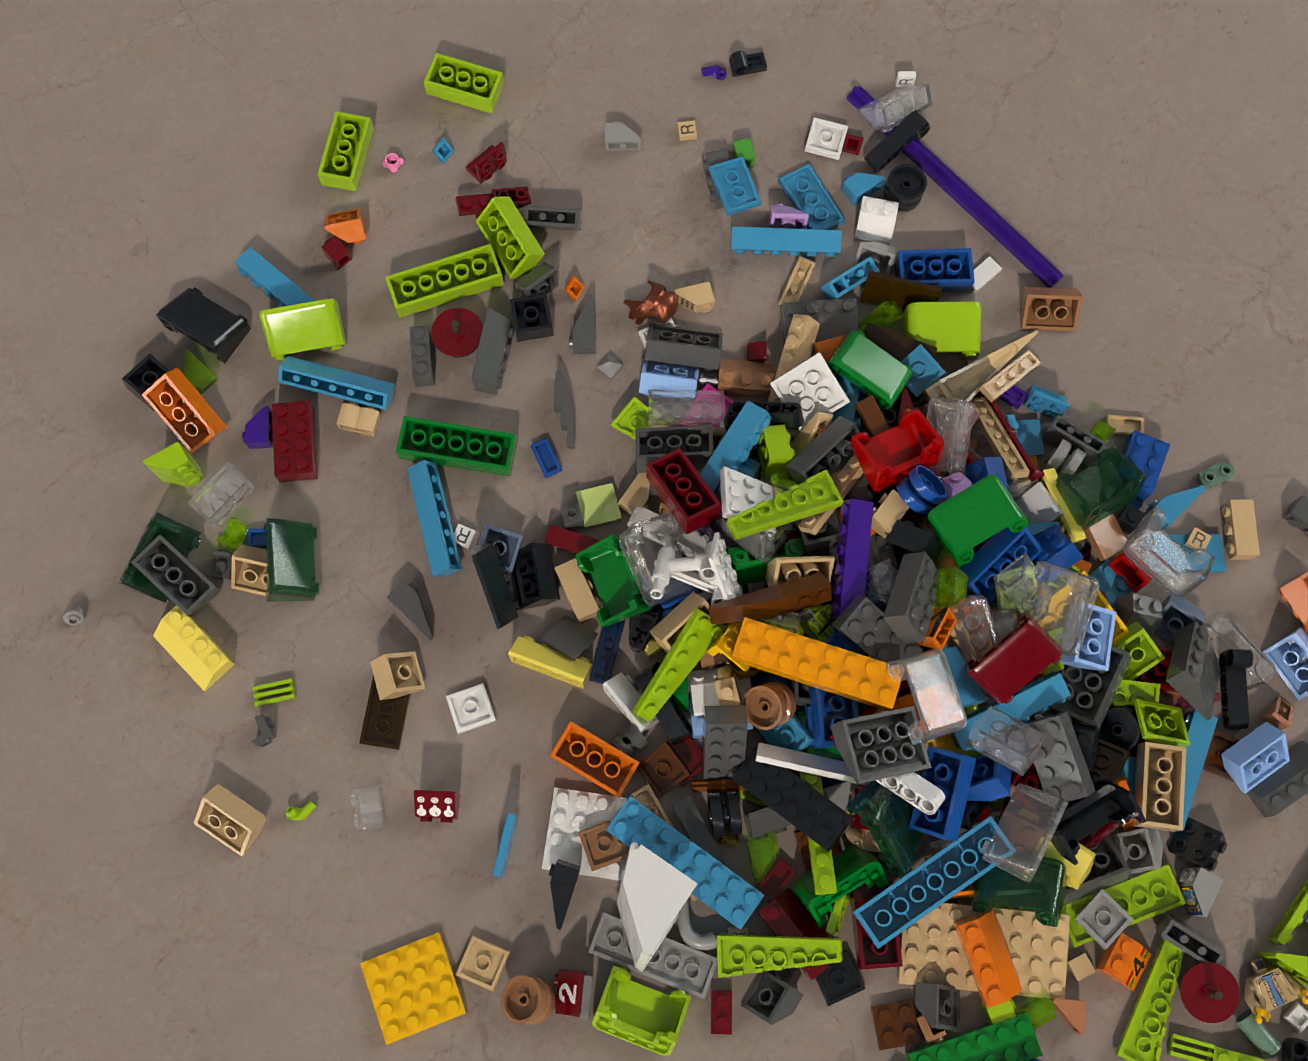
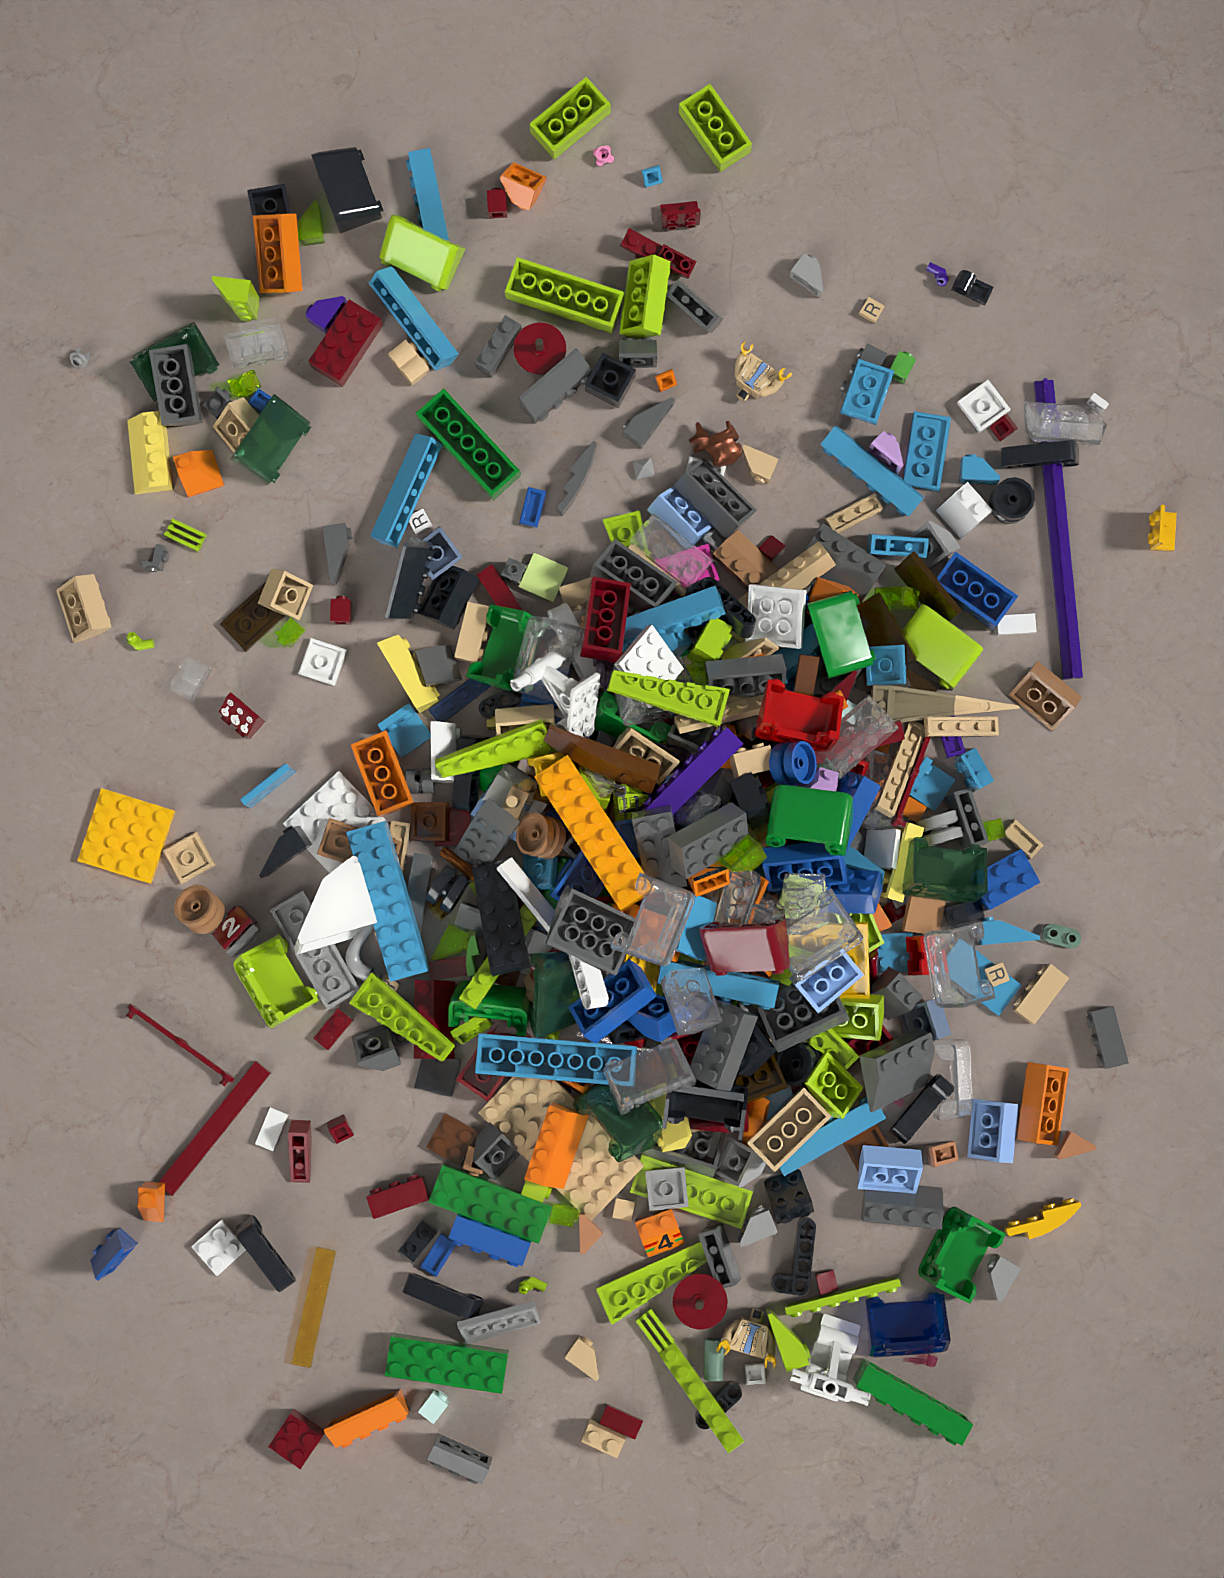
camera: 45 degrees right, 10 degrees up
(247, 632) = (198, 471): none -> orange slope
(425, 705) = (290, 633): none -> clear neon green bracket
(454, 654) = (341, 611): none -> dark red brick
(584, 710) = (405, 730): none -> dark azure bracket
(641, 236) = (756, 376): none -> tan torso
(786, 847) = (472, 950): none -> bright green slope
(1026, 131) = (1162, 530): none -> yellow bracket
(1247, 888) = (799, 1255): none -> black beam
(1284, 892) = (826, 1281): none -> dark red slope

